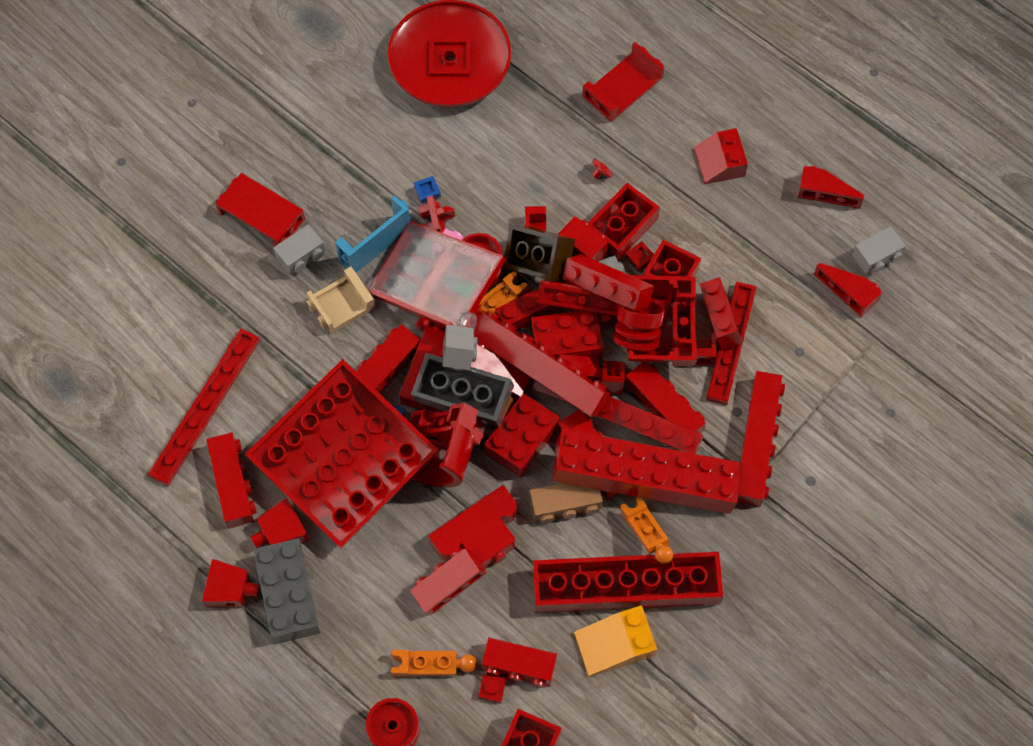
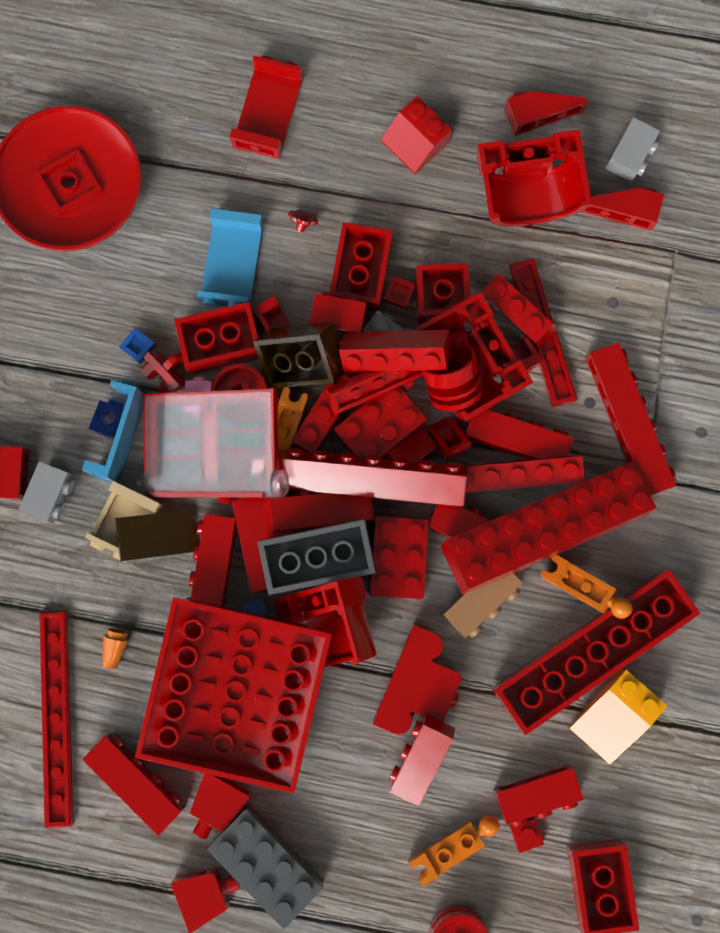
camera: 30 degrees left, 15 degrees up
(277, 380) = (113, 647): none -> orange cone
(356, 320) = (155, 535): none -> dark brown piece
(373, 218) = (98, 425): none -> clear blue brick
(459, 347) = (290, 519): light grey brick -> none
(486, 212) = (217, 338): none -> red brick
(532, 169) = (231, 258): none -> dark azure panel
(784, 233) = (527, 185): none -> red piece

